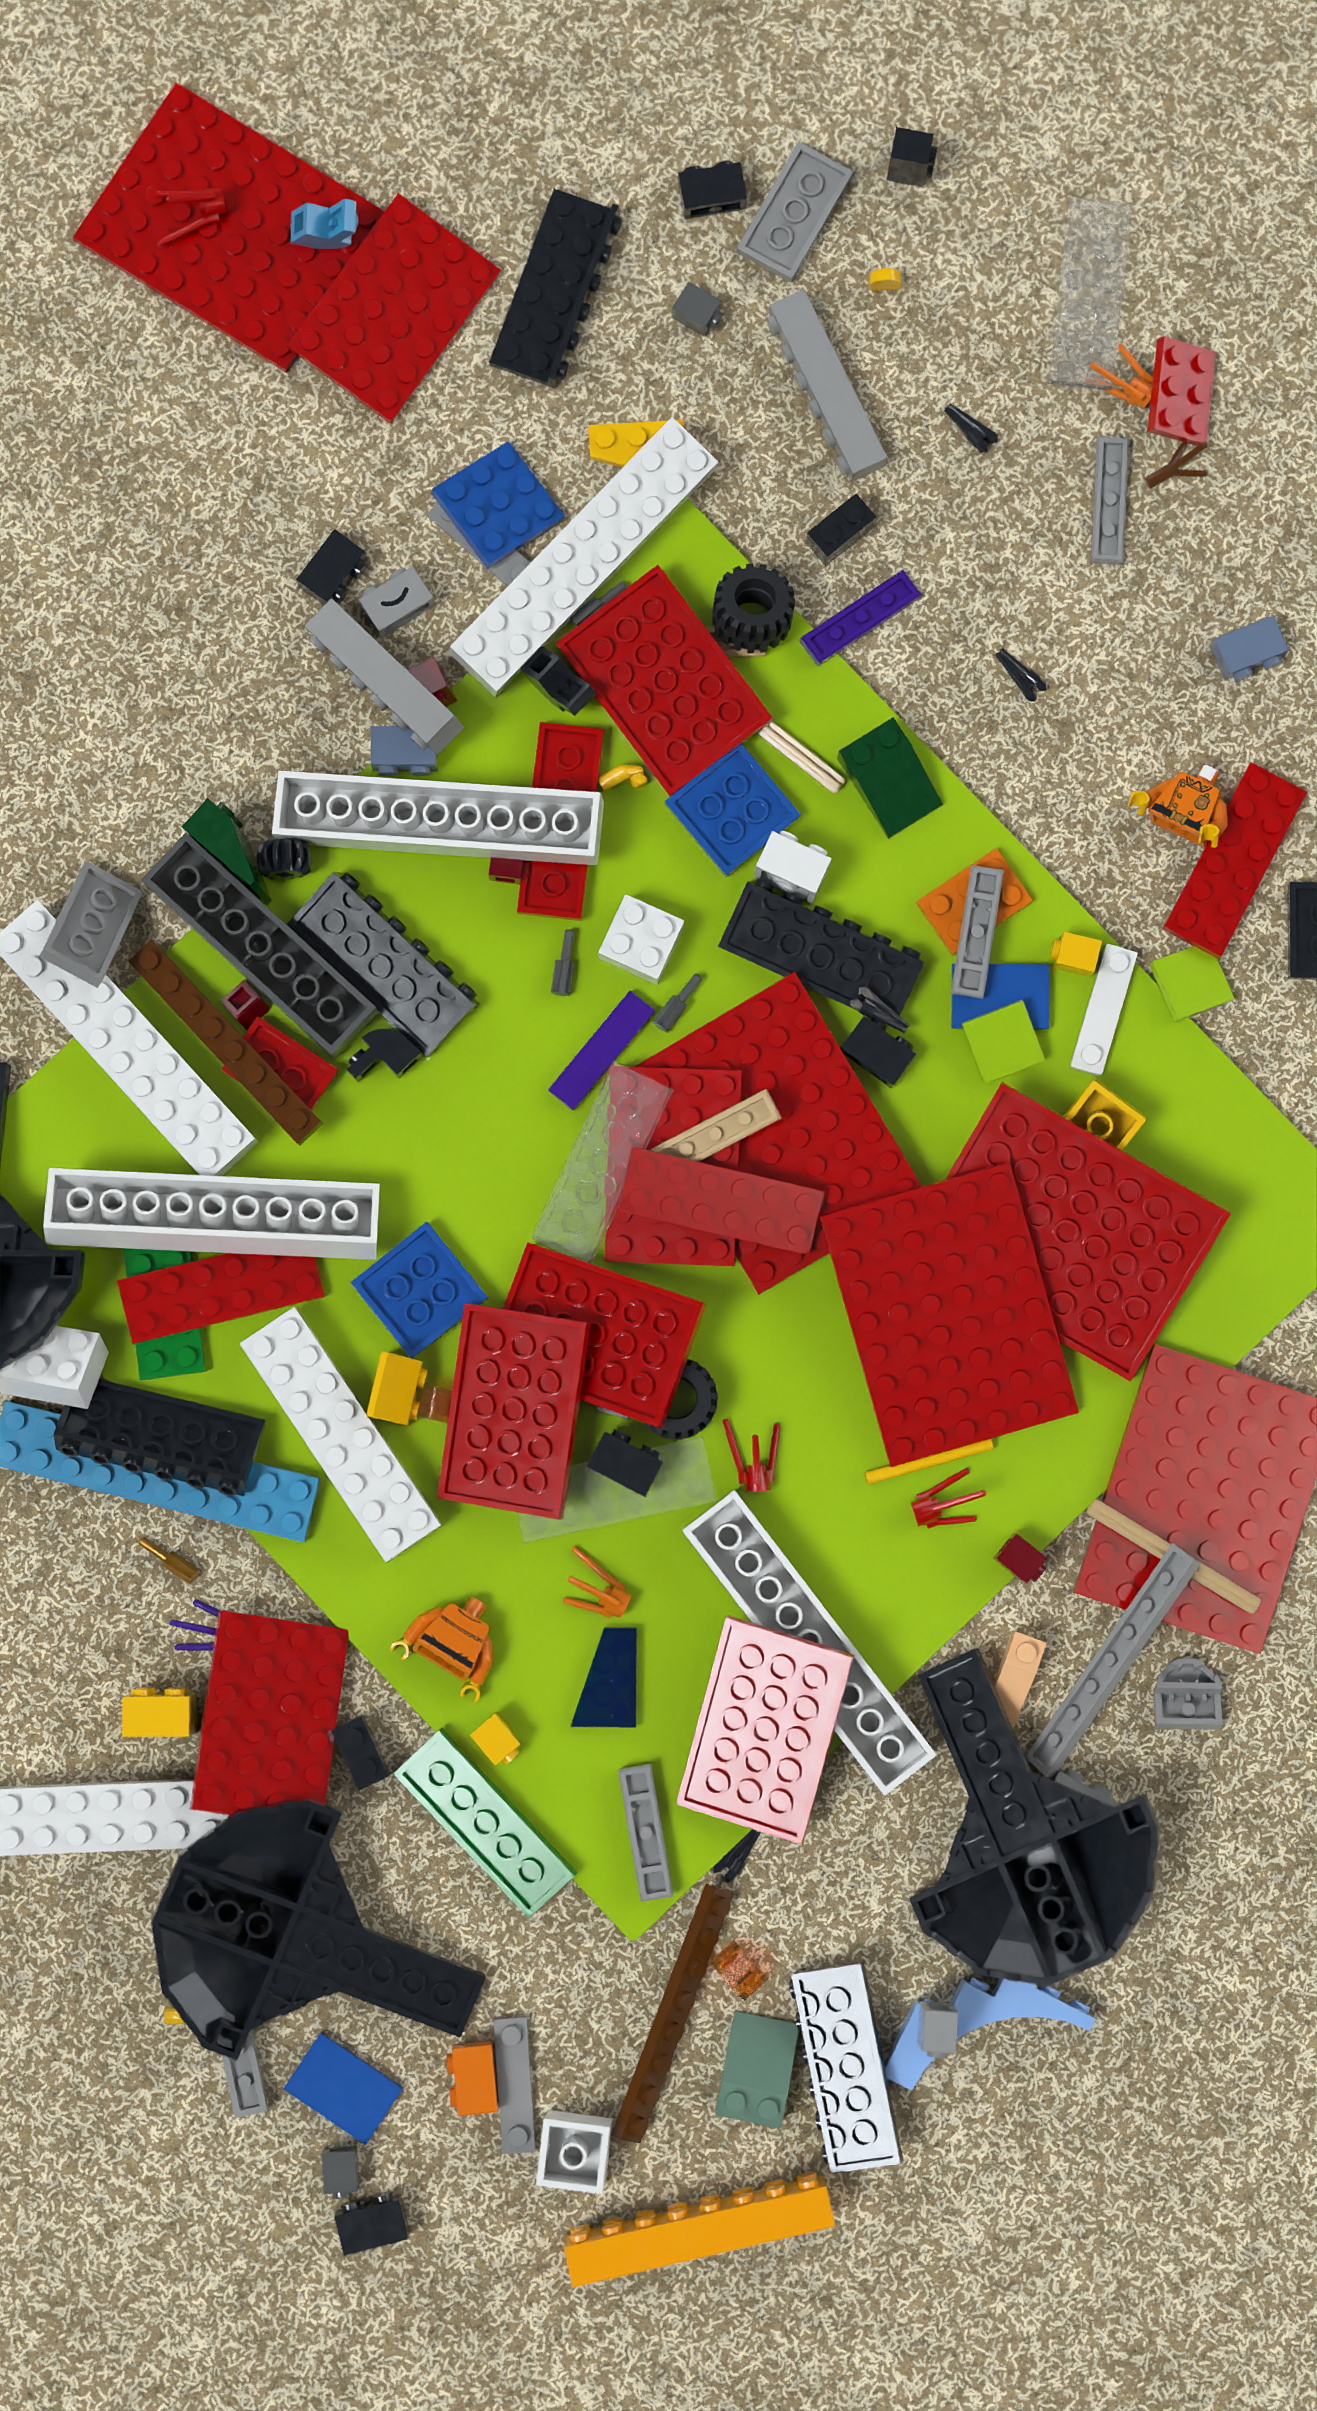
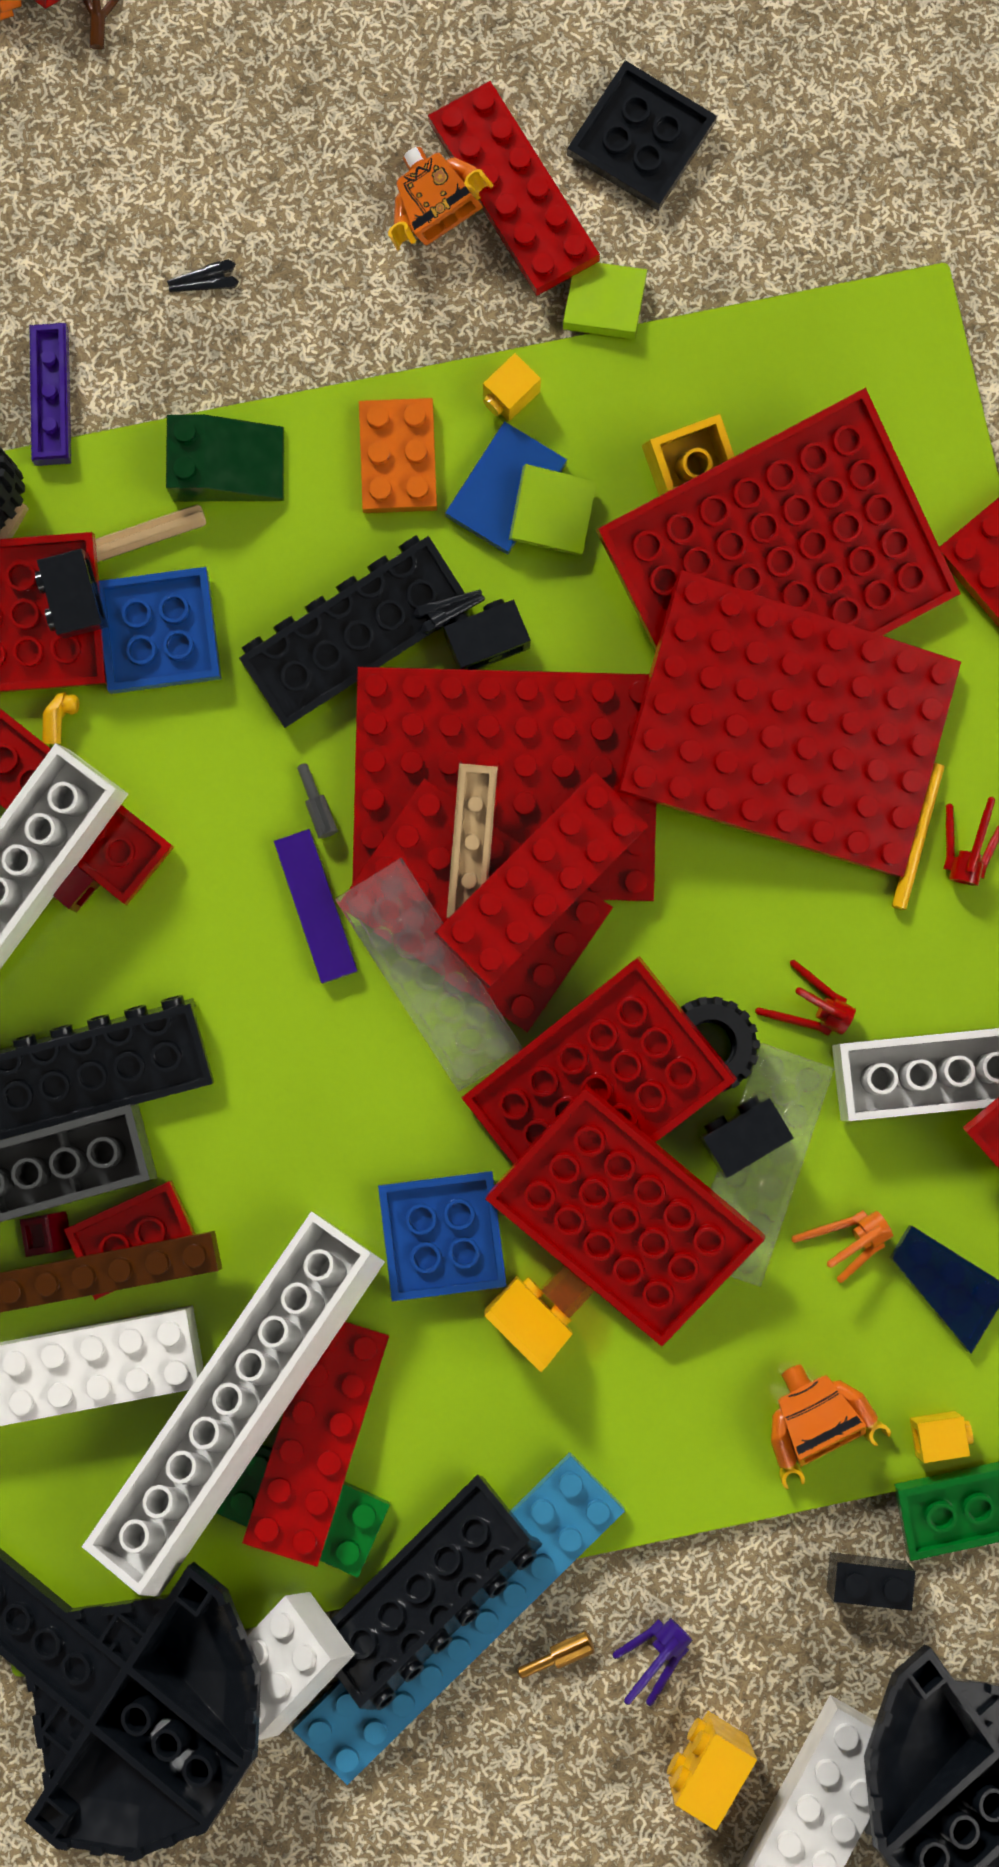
camera: 55 degrees left, 0 degrees up
(268, 1713) = (780, 1658): red plate -> none
(341, 1434) = (540, 1410): white brick -> none
(384, 1046) = (176, 1117): black brick -> none
(563, 968) = (210, 892): dark grey axle -> none
(641, 939) = (230, 798): white brick -> none
(716, 732) = (71, 594): none -> black brick
(793, 866) = (252, 602): white brick -> none
(977, 932) = (430, 467): light grey plate -> none
(1103, 1010) = (581, 398): white plate -> none
(1109, 500) = (90, 91): light grey tile -> none
(1249, 648) = (318, 46): sand blue brick -> none

